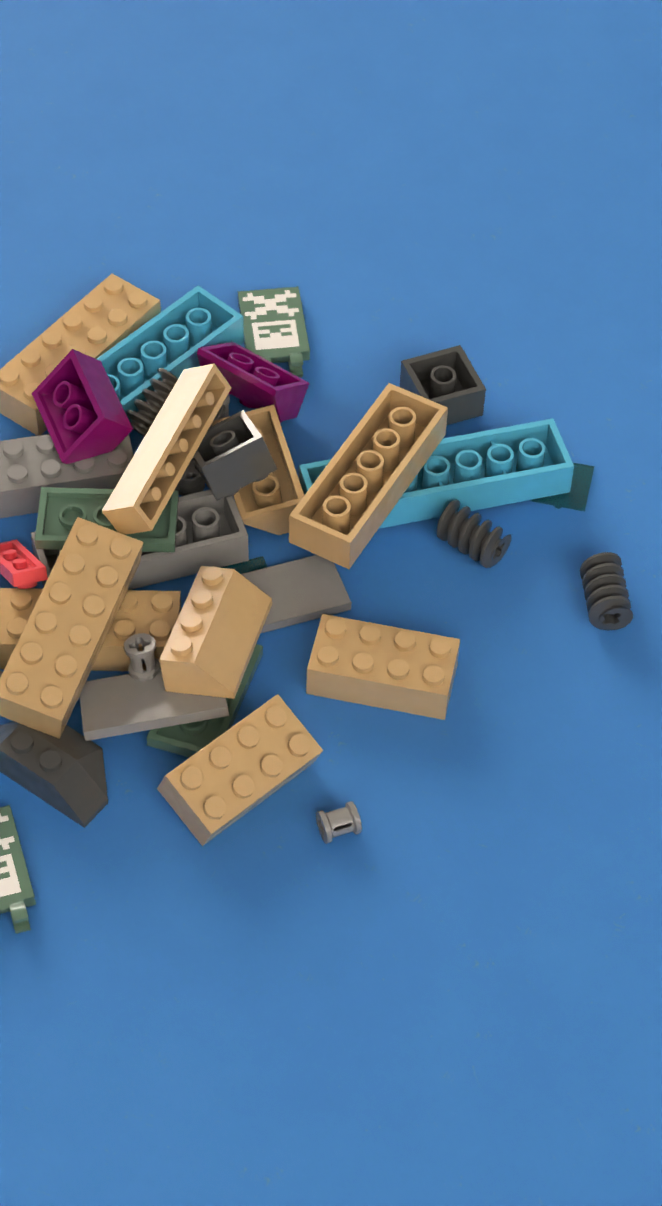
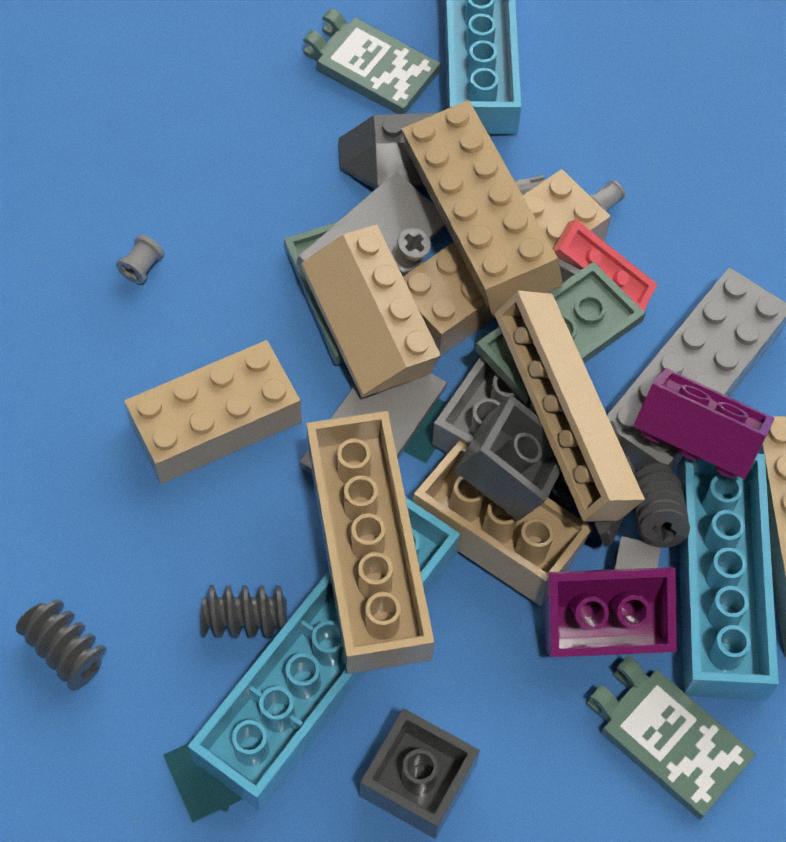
camera: 140 degrees right, 10 degrees up
(239, 769) = (248, 232): tan brick -> none

